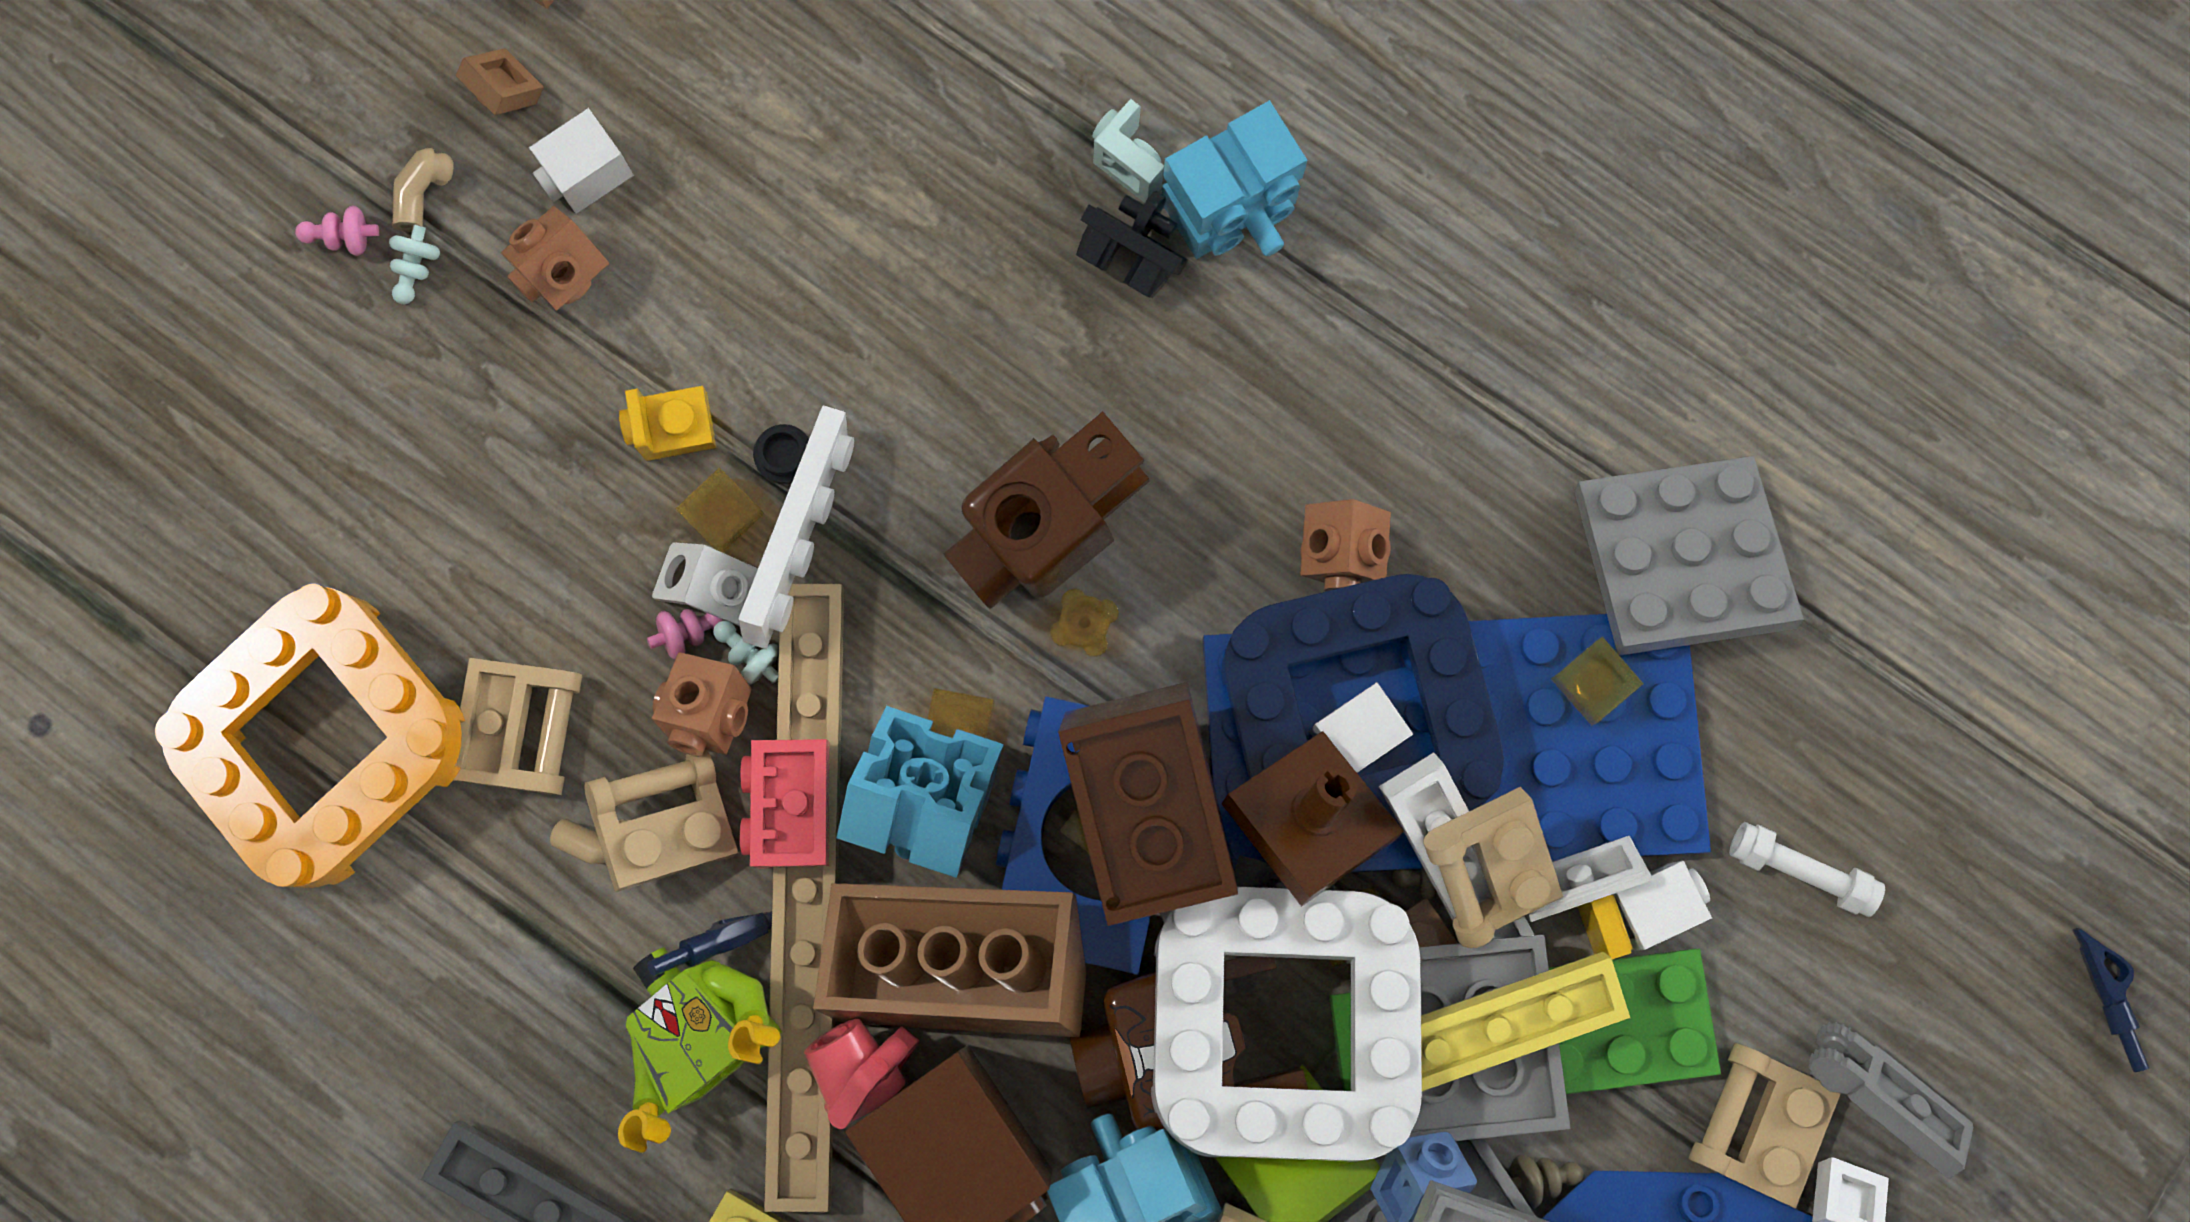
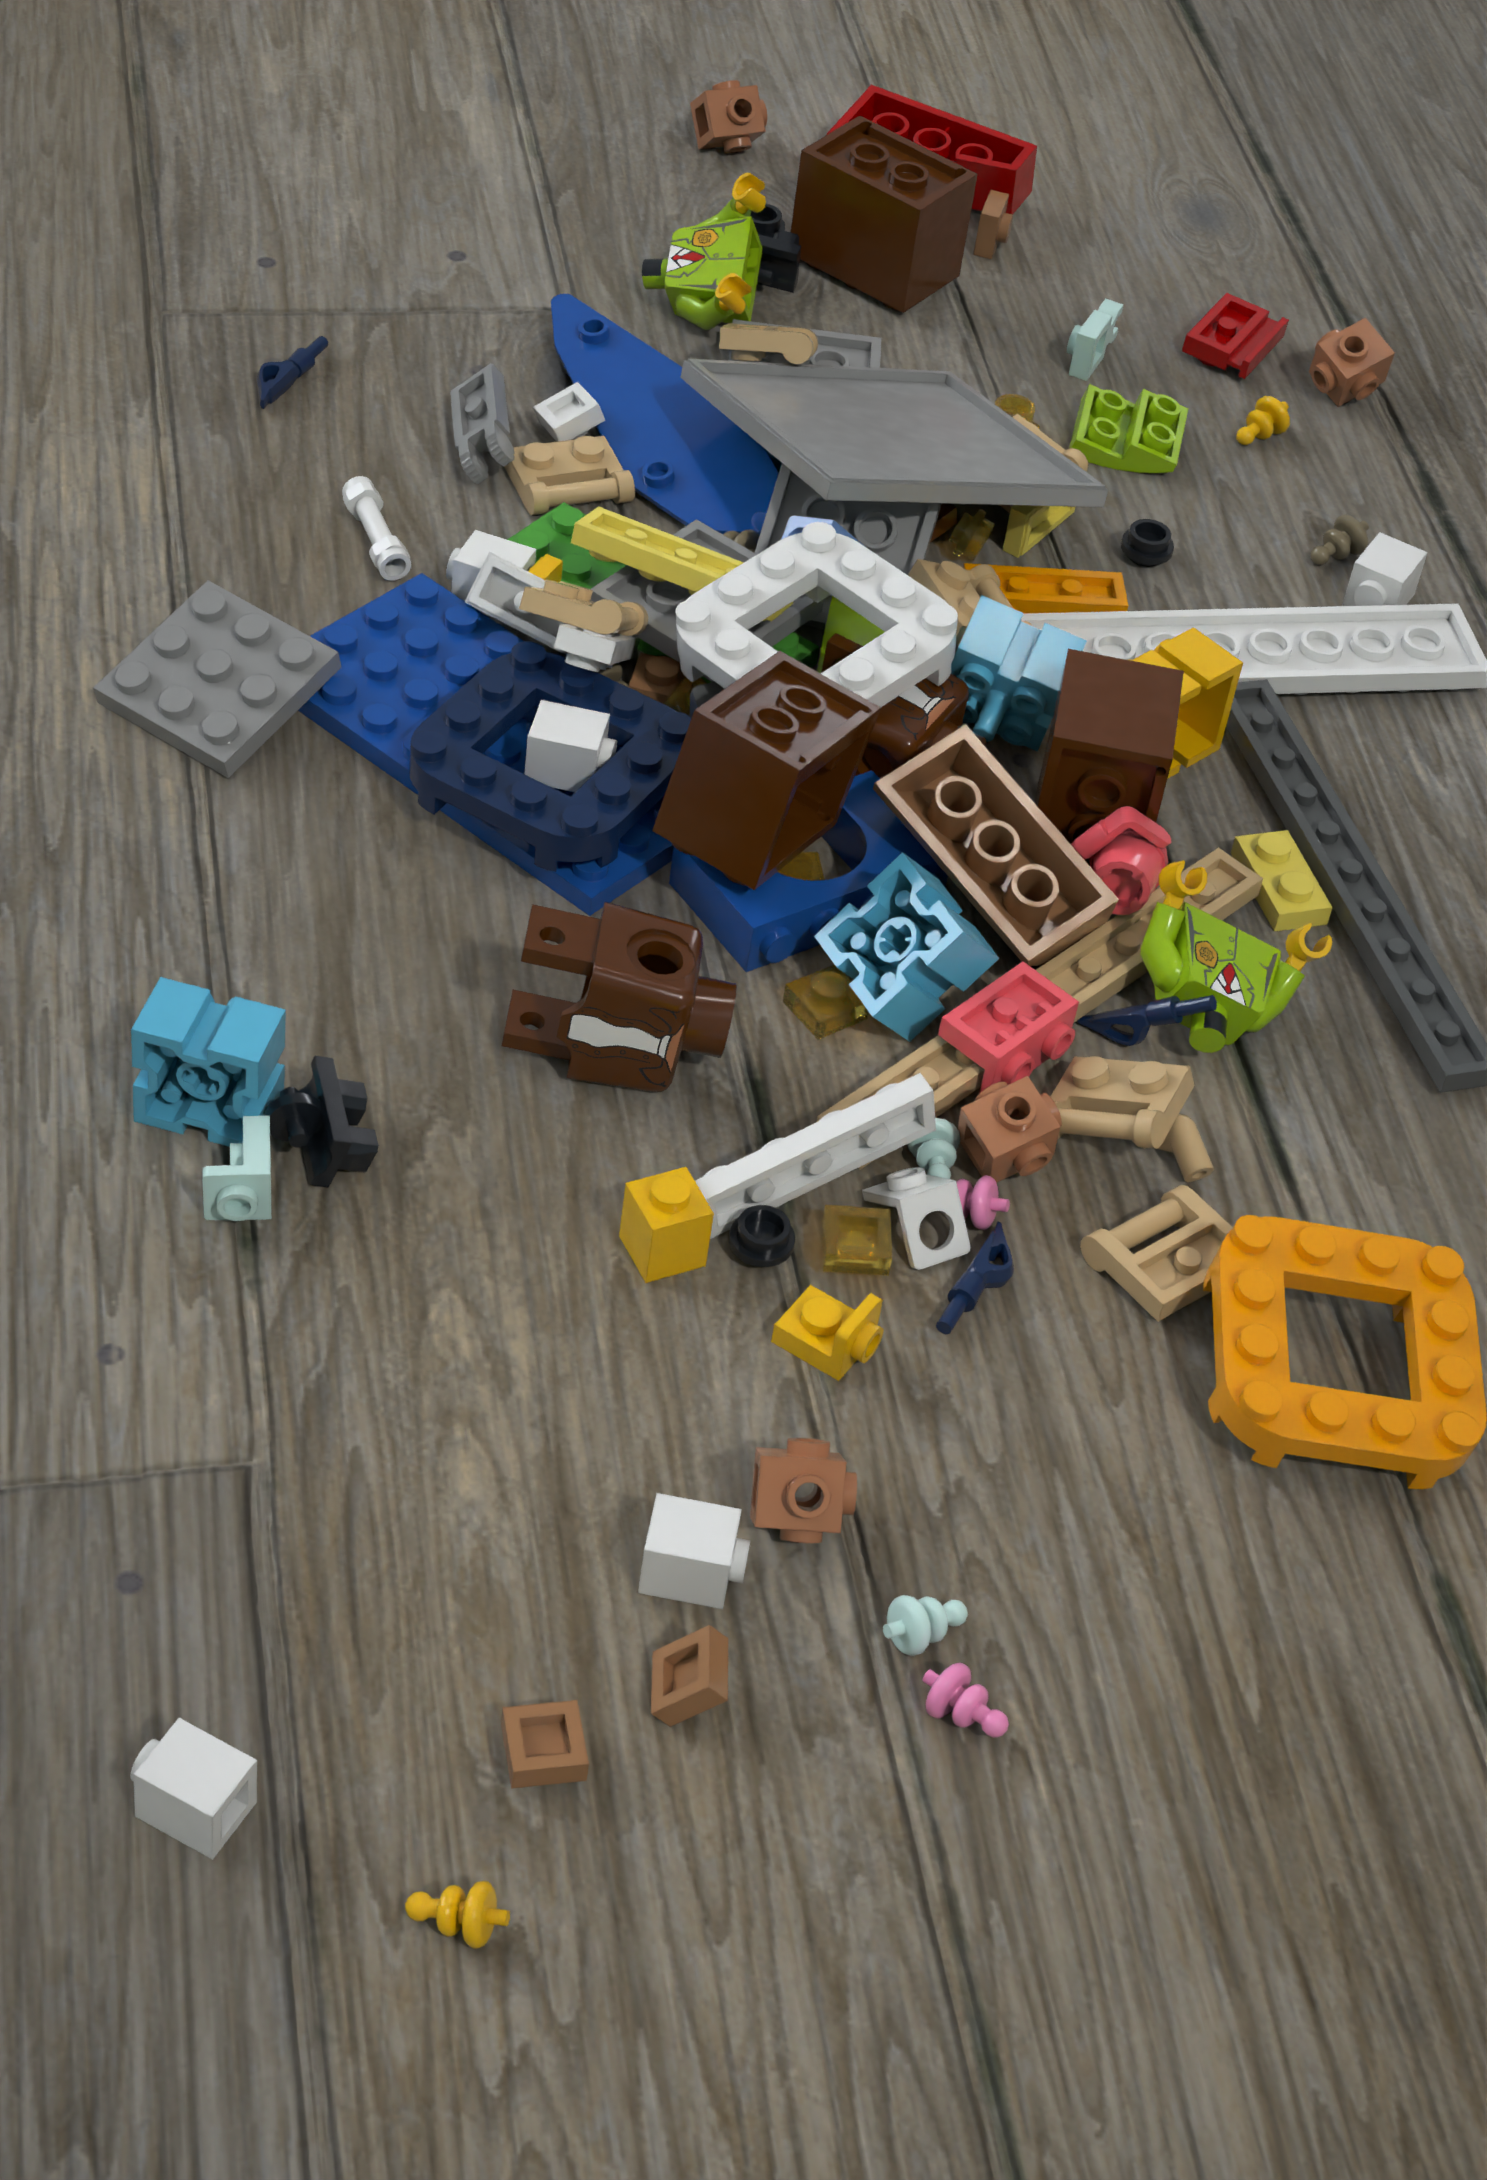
camera: 140 degrees left, 35 degrees down
(413, 181) = (853, 1679): tan arm -> none
(624, 577) = (978, 1276): none -> dark blue hand
(839, 379) = (666, 1224): none -> yellow brick
(1312, 818) = (661, 688): reddish brown tile -> none
(1345, 543) = (432, 847): nougat brick -> none
(1597, 681) = (378, 657): clear yellow plate -> none

